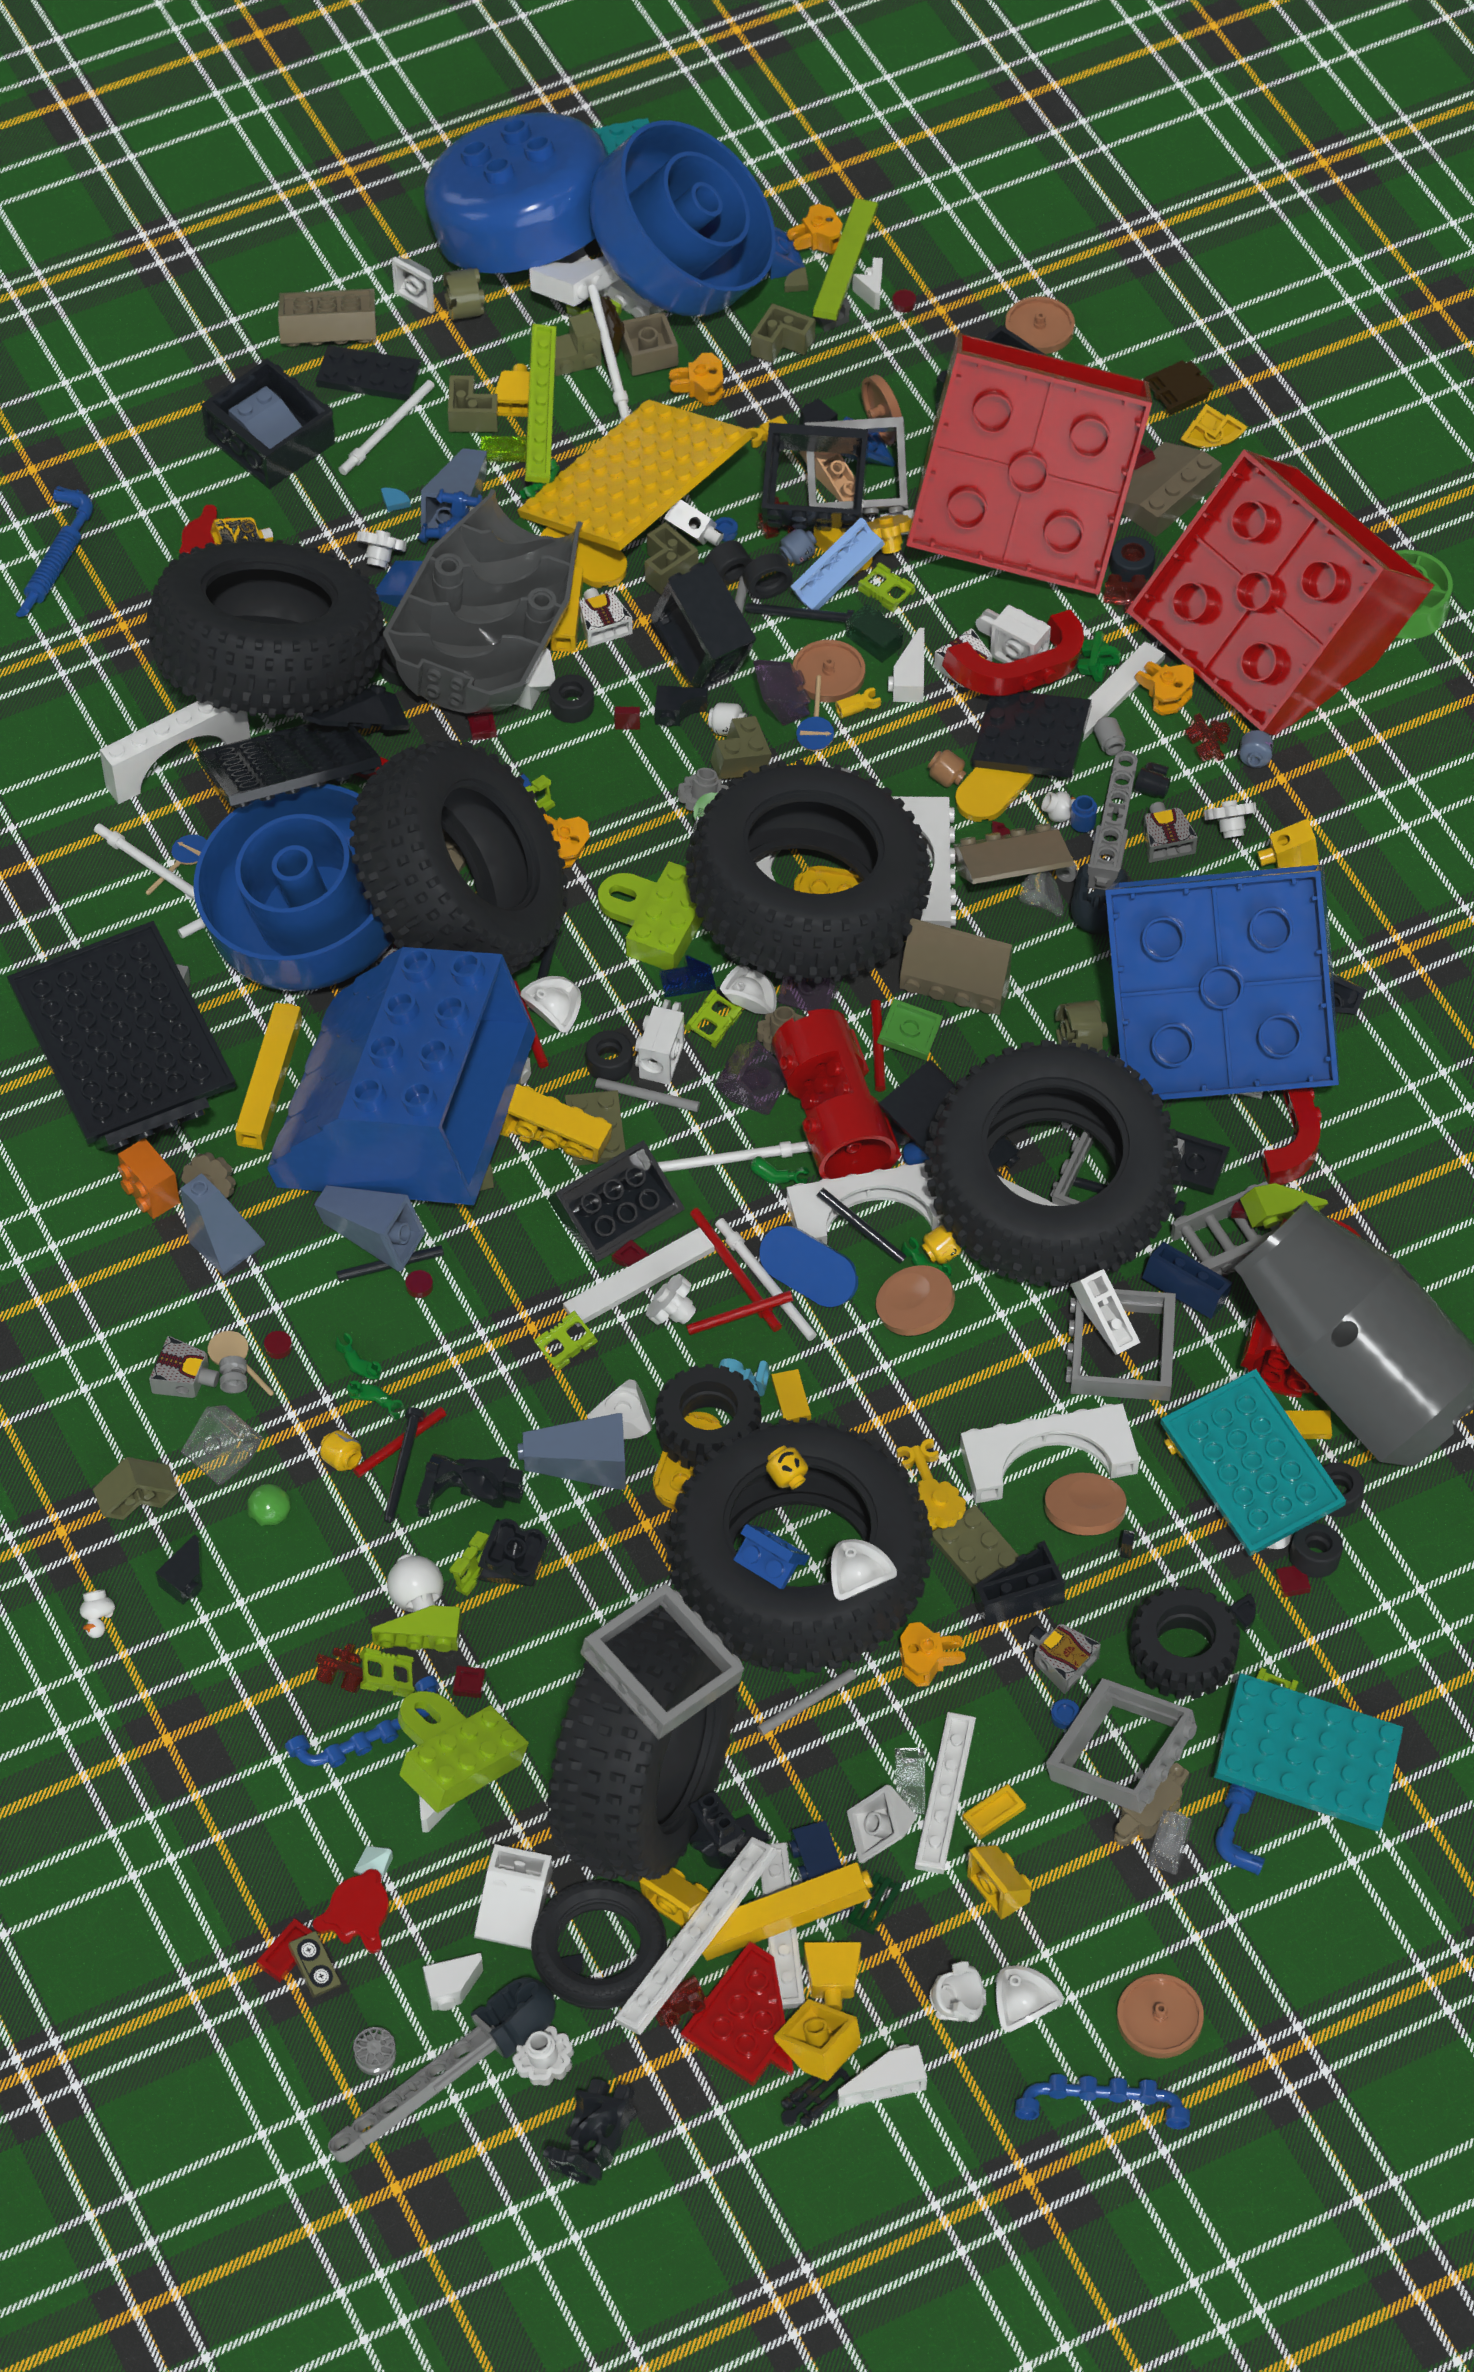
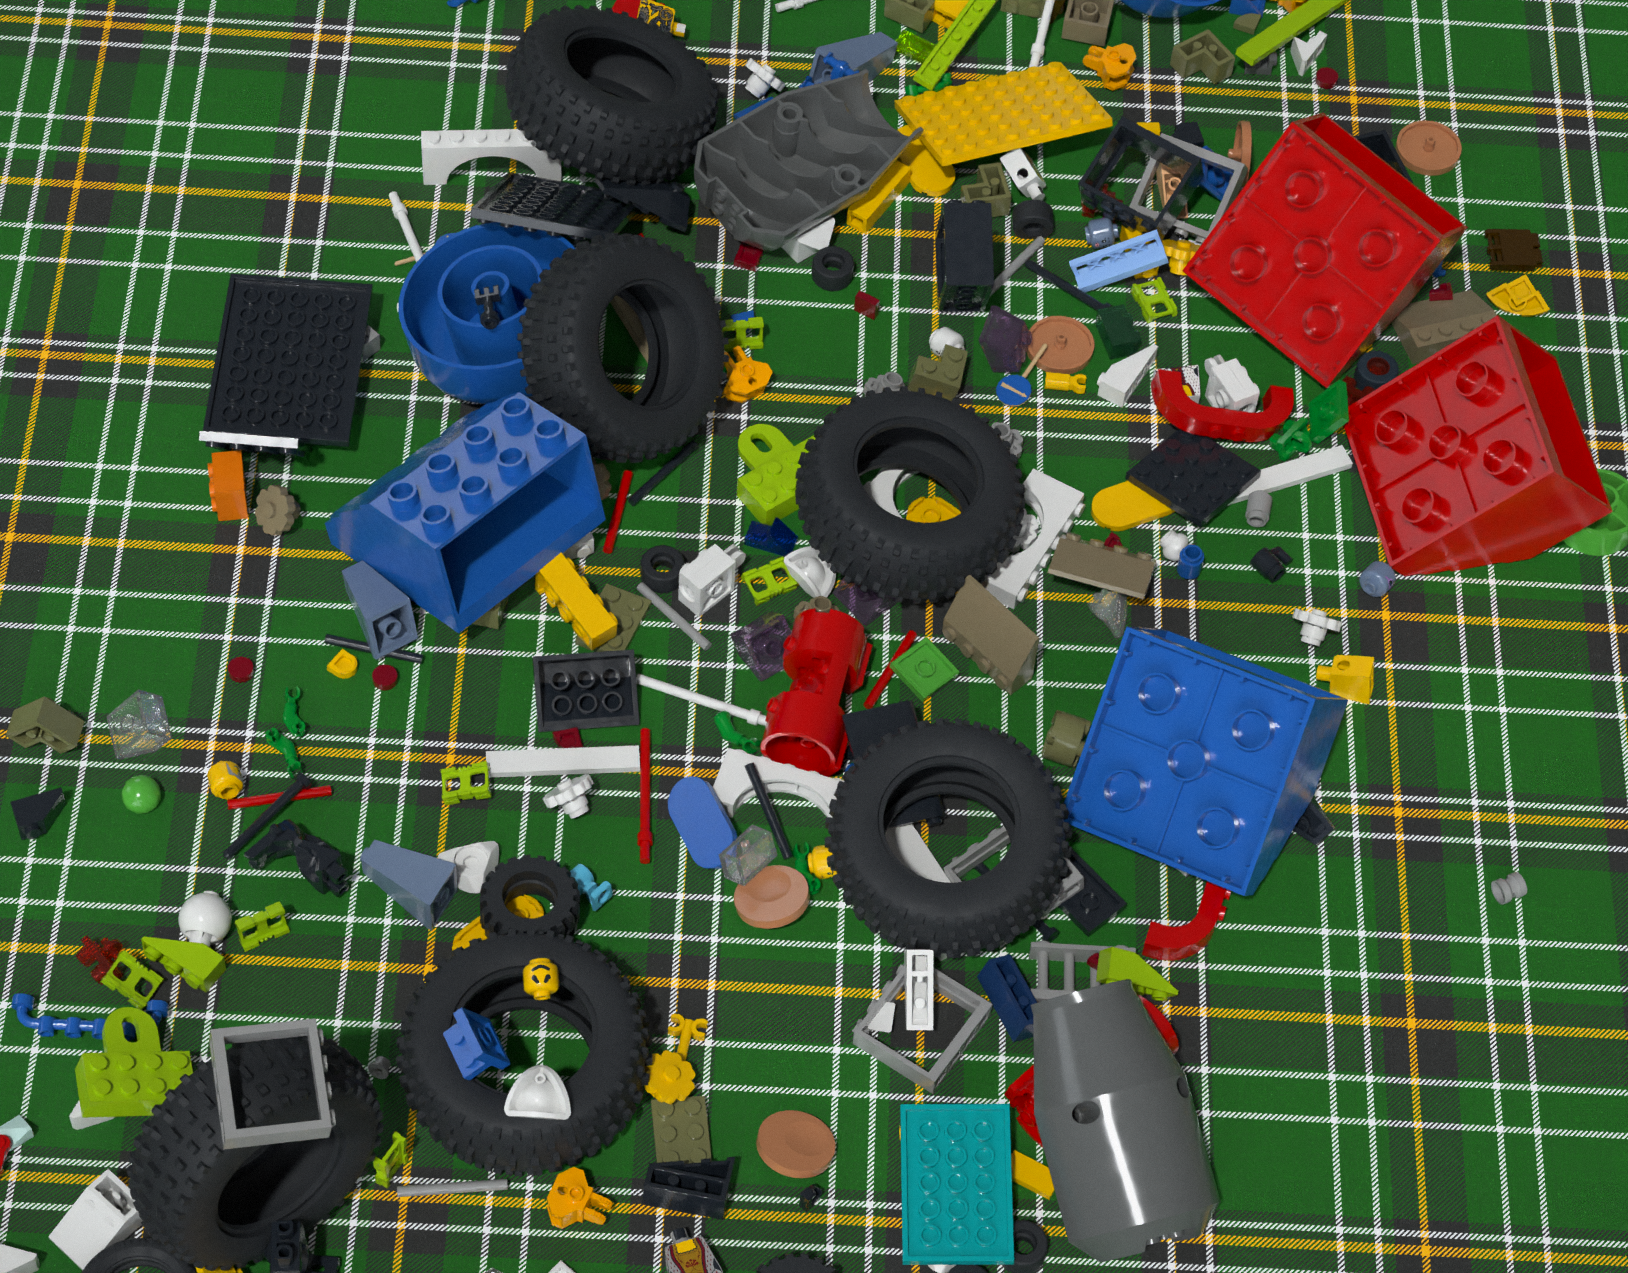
camera: 25 degrees right, 0 degrees up
(181, 1370) = (149, 651): light grey torso -> none
(217, 1226) = (255, 548): sand blue slope -> none
(233, 1344) = (202, 654): tan piece -> none
(233, 1375) = (188, 673): light grey wheel -> none
(268, 1076) = (383, 451): yellow brick -> none
(318, 893) = (489, 317): none -> black hinge
(372, 1292) = (343, 665): none -> yellow tile
(395, 499) = (803, 48): dark azure tile -> none
(469, 1682) = (195, 1023): dark red tile -> none
(512, 1554) = (295, 935): black piece -> none
(554, 1000) = (649, 502): white hat -> none
(603, 617) = (902, 216): white torso -> none
(677, 703) = (914, 312): black arch -> none
(728, 527) = (1053, 192): blue tile -> none
(736, 1242) = (660, 773): white bar -> none
(740, 1312) = (621, 832): red bar -> none
(741, 1711) = (384, 1166): none -> lime piece
(763, 565) = (1057, 233): black tyre -> none
(791, 1395) = (616, 924): yellow tile -> none
(872, 1273) = (748, 855): none -> clear brick
(947, 768) = (1101, 470): medium nougat head -> none
(1067, 874) = (1145, 605): light grey piece -> none
(1087, 1356) = (884, 1018): none -> white sticker
(1097, 1431) = (752, 1057): white arch -> none
(1099, 872) = (1174, 617): light grey piece -> none
(1116, 615) = (1328, 411): none -> green plate
(1167, 685) = (1335, 490): light orange hinge -> none
(1167, 833) = (1252, 613): light grey torso -> none
(1210, 747) = (1344, 547): clear red hips -> none

